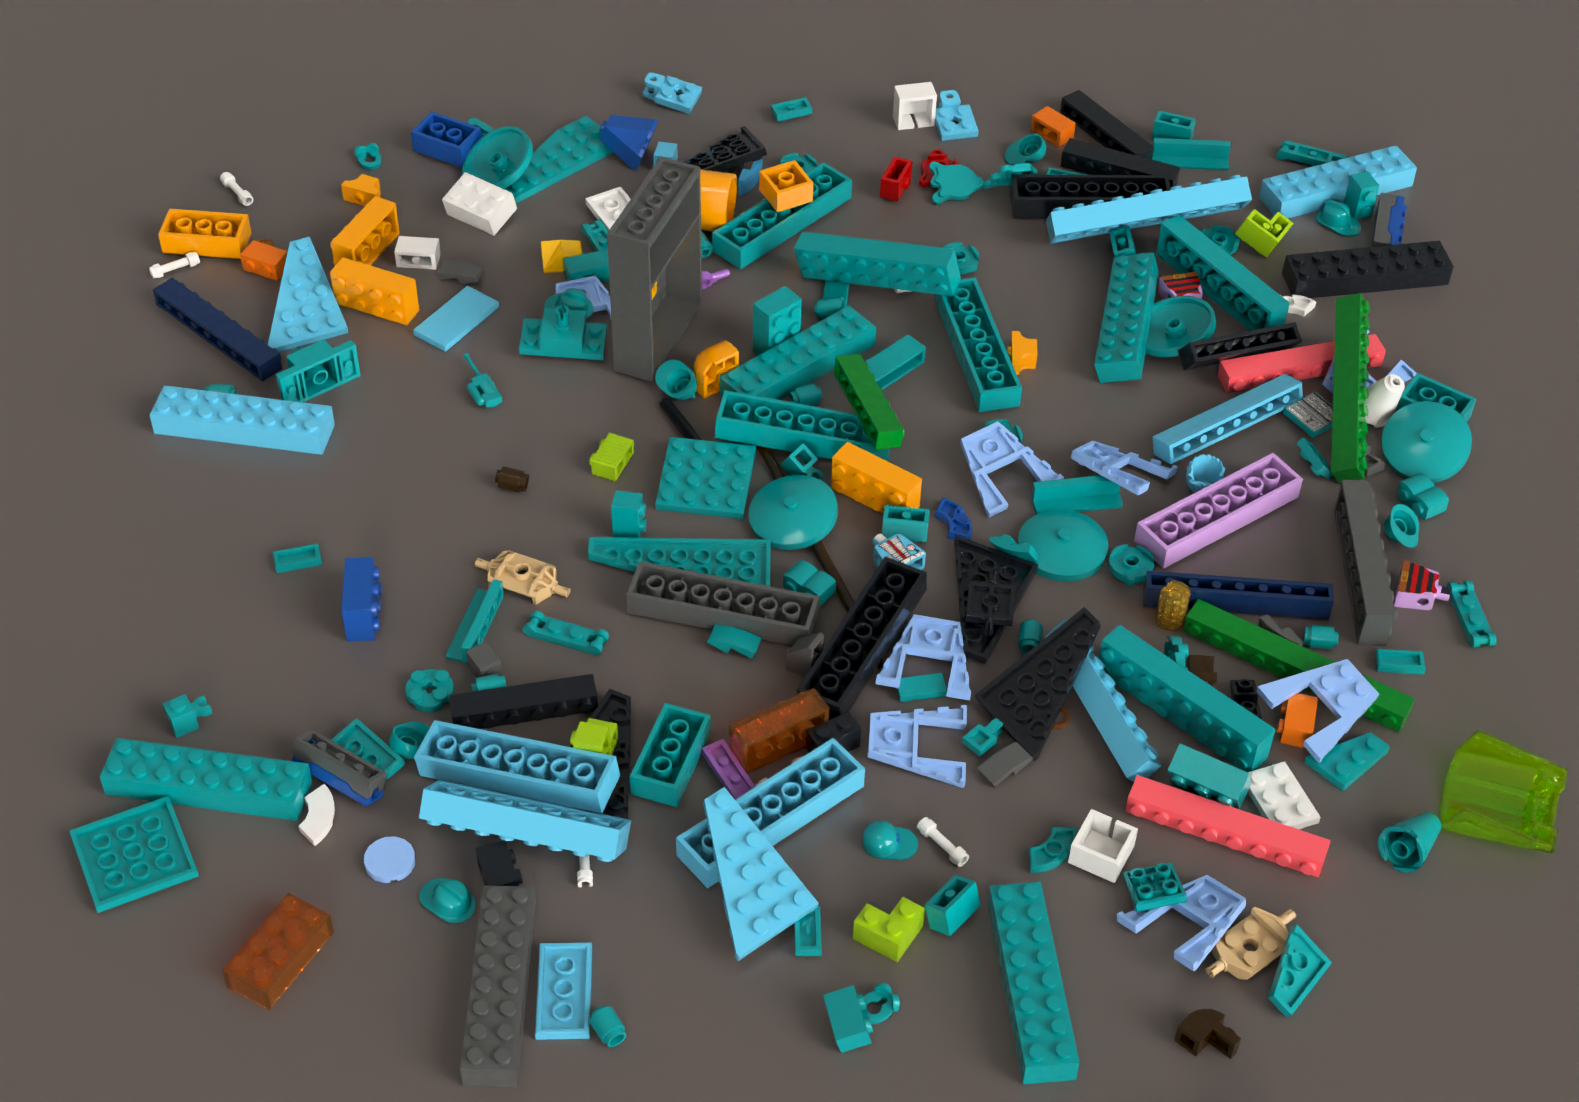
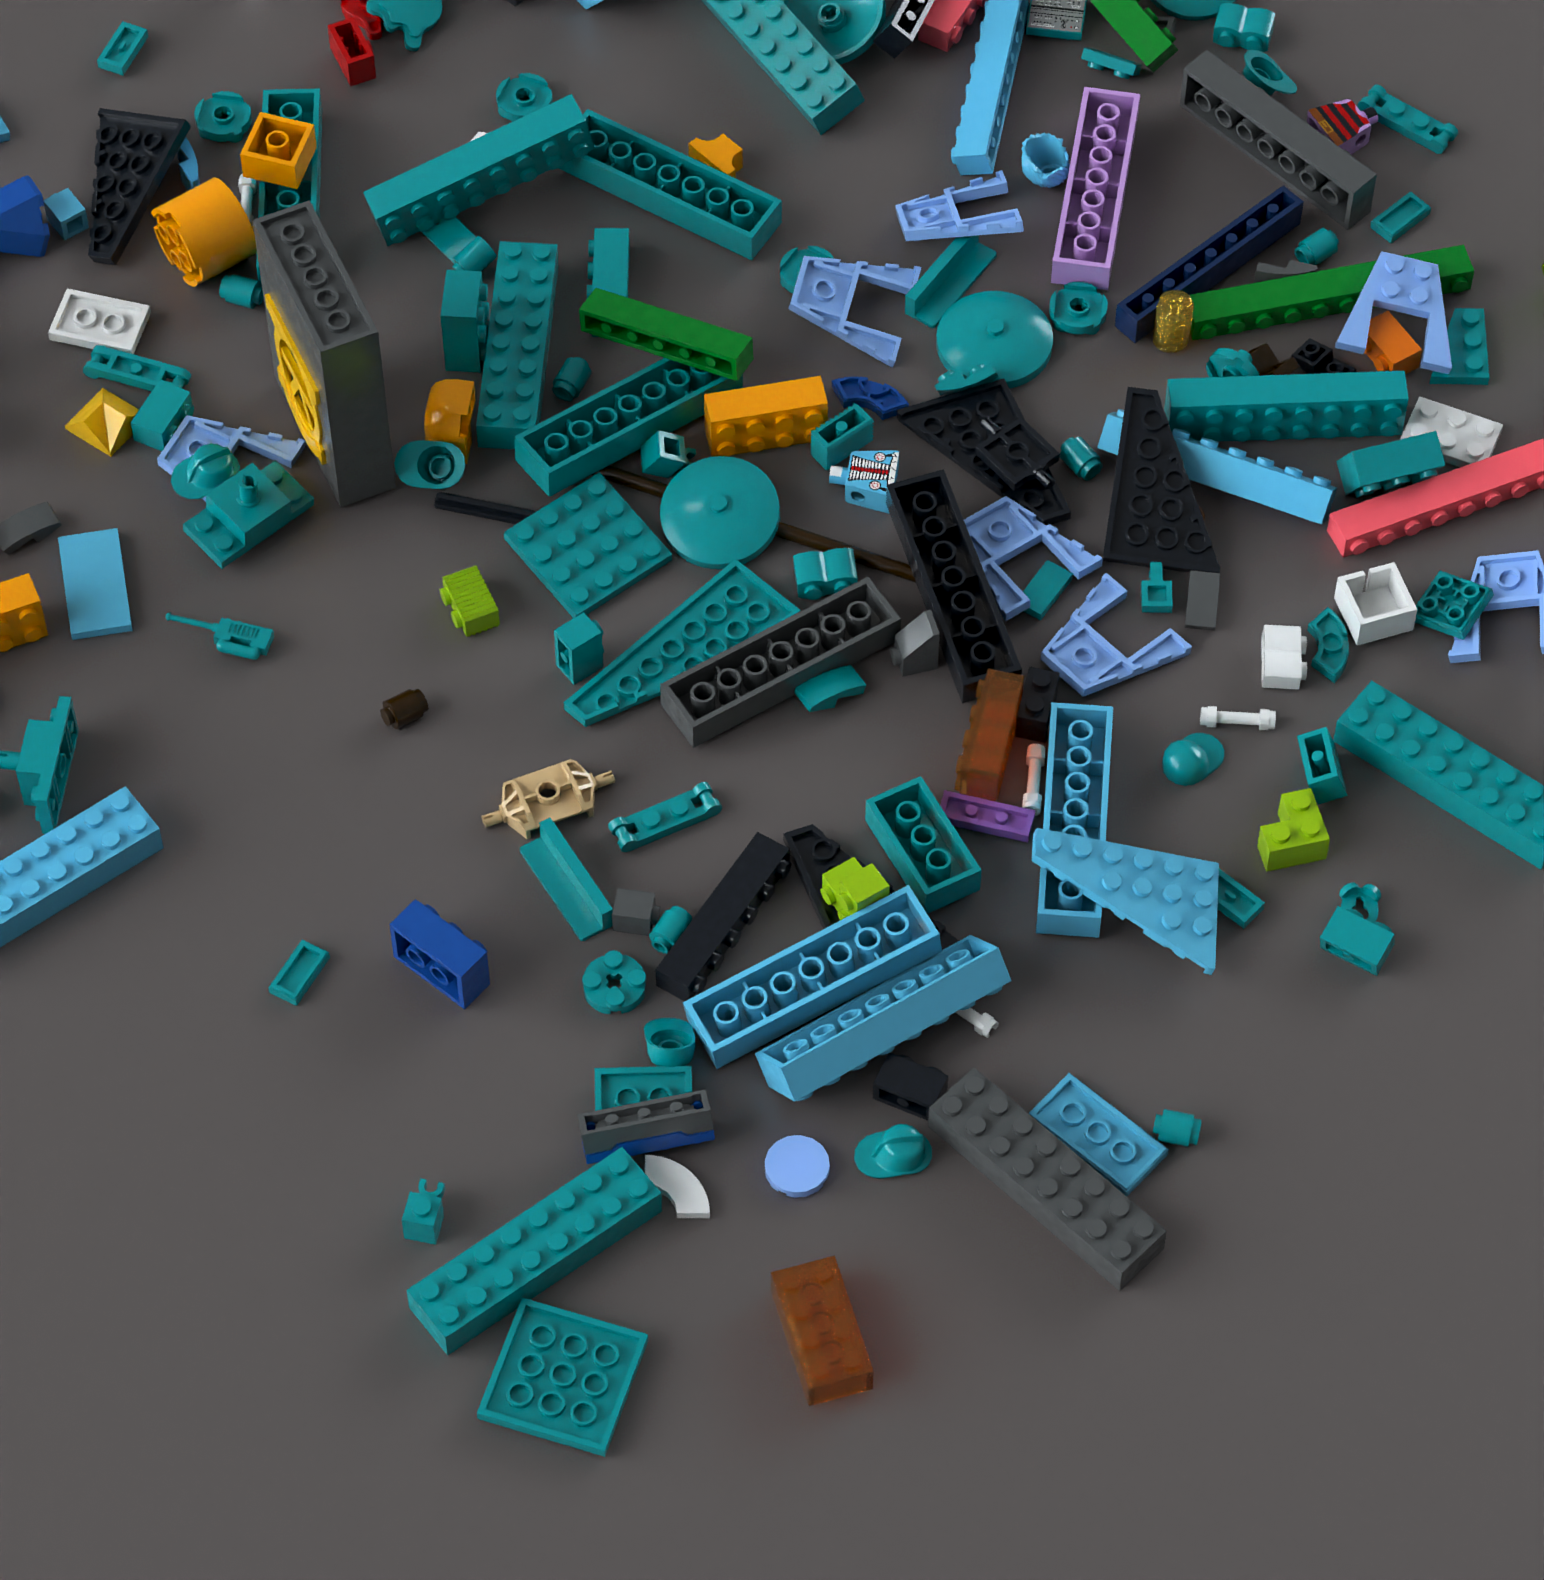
camera: 45 degrees left, 10 degrees up
(1011, 830) = (1282, 657): none -> white brick

